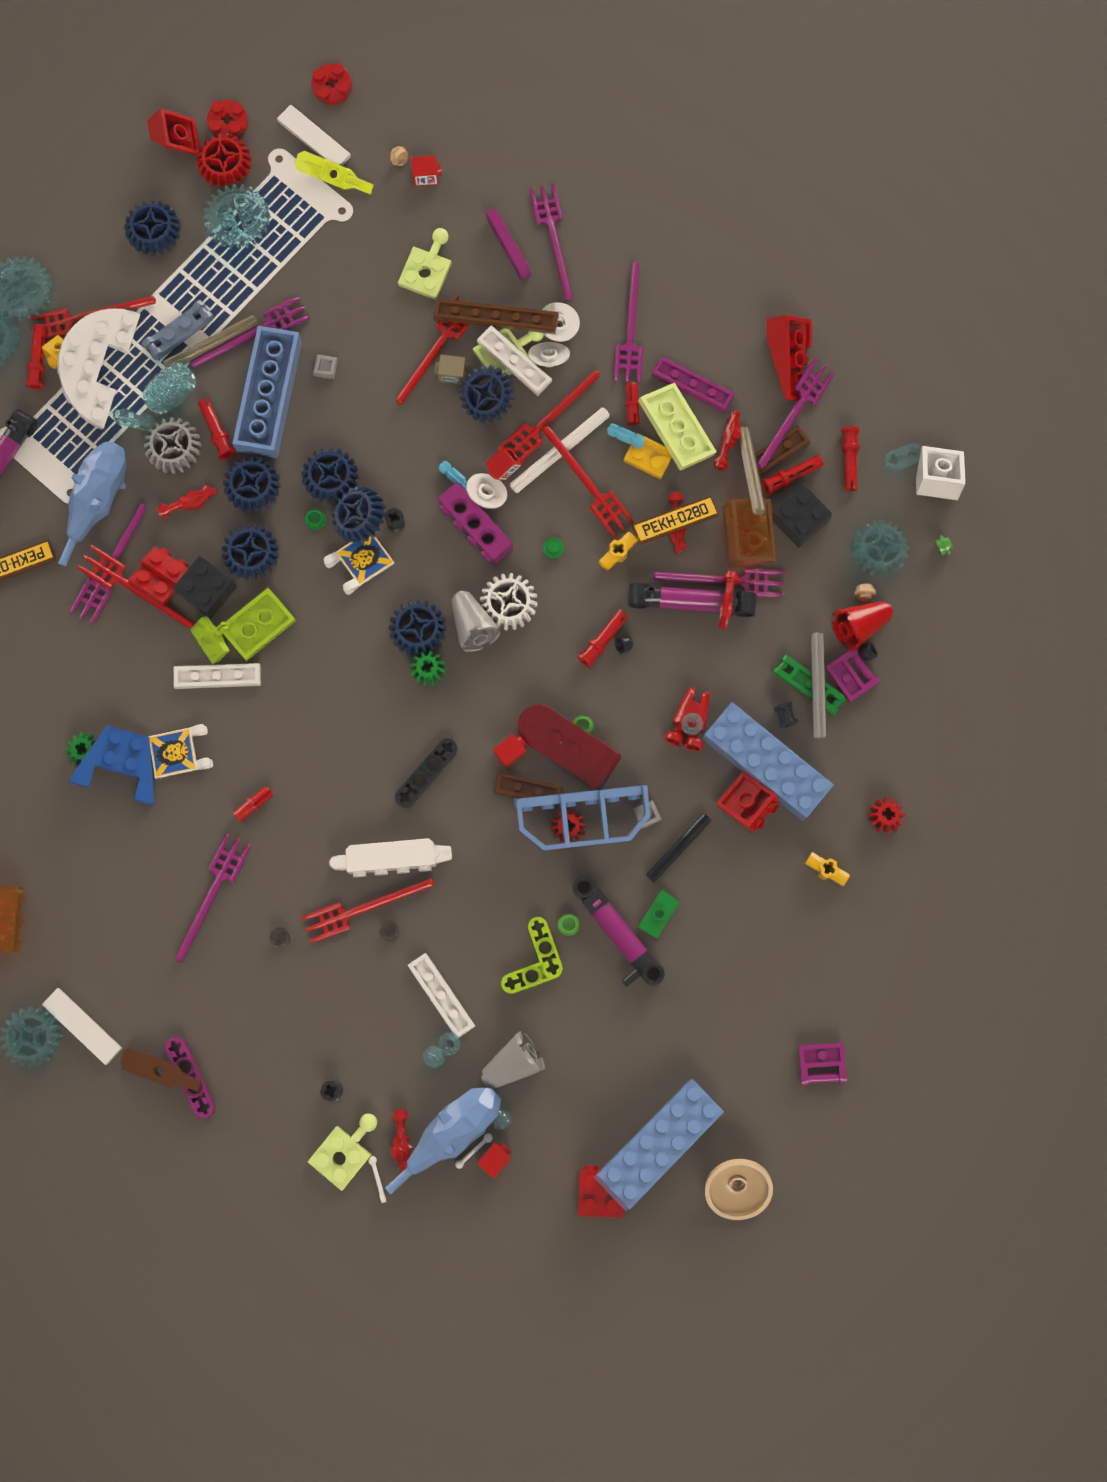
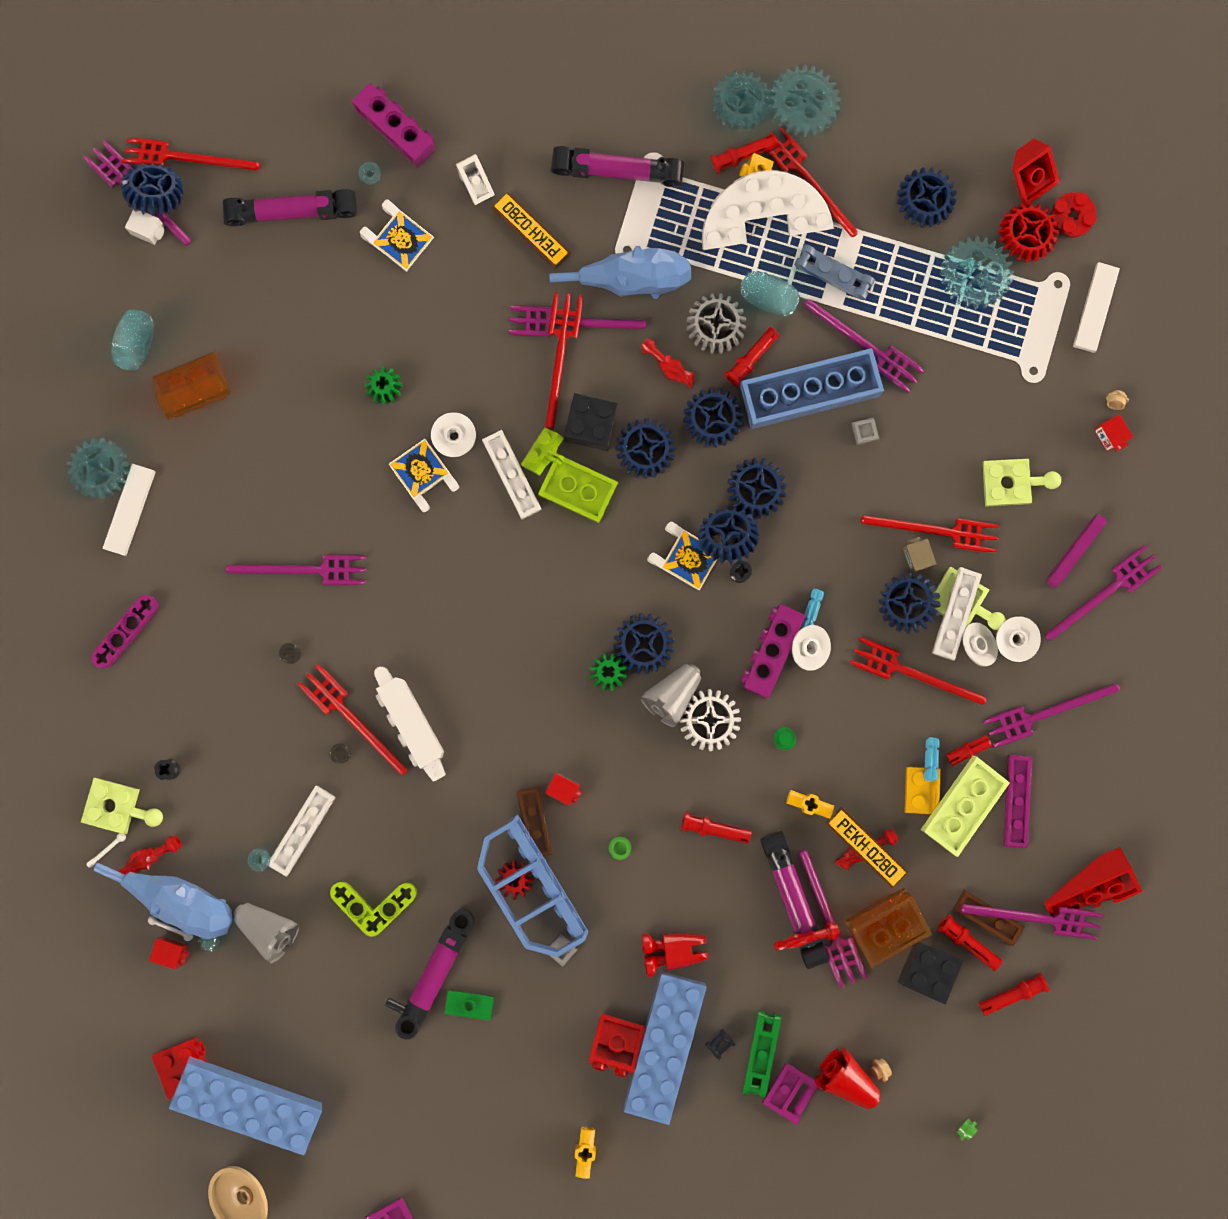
camera: 60 degrees right, 5 degrees up
(123, 754) = (395, 423): blue wing -> none
(128, 418) = (724, 266): clear light blue plate -> none
(147, 1067) = (116, 588): reddish brown piece -> none
(150, 701) = (449, 424): none -> white dish
(158, 575) = (582, 373): red plate -> none
(213, 342) = (836, 310): dark tan axle -> none
(253, 803) = (403, 567): red axle -> none
(315, 520) = (706, 494): green plate -> none
(321, 169) = (1067, 330): neon yellow piece -> none
(328, 73) = (1173, 295): red plate -> none
(429, 775) = (507, 714): black beam -> none
(433, 1057) = (239, 850): clear light blue plate -> none
(496, 316) = (994, 575): reddish brown tile -> none
(503, 464) = (845, 651): red brick -> none
(553, 455) = (887, 699): white axle -> none
(568, 744) = (594, 842): dark red piece -> none
(568, 924) = (421, 922): bright green plate -> none
(600, 499) = (855, 762): red piece -> none
(623, 644) = (719, 851): black hinge -> none
(678, 847) = (542, 995): black axle -> none
(695, 718) = (667, 964): clear light blue plate -> none
(730, 438) = (980, 863): red piece -> none
(751, 471) = (952, 902): dark tan axle -> none
(818, 685) = (763, 1065): light grey axle -> none
(868, 652) = (822, 1099): black hinge -> none
(882, 530) = (926, 1068): clear light blue gear -> none
(882, 821) = (664, 1179): red gear -> none
(904, 461) = (1043, 1044): clear light blue beam -> none
(940, 473) = (1040, 1095): white slope -> none

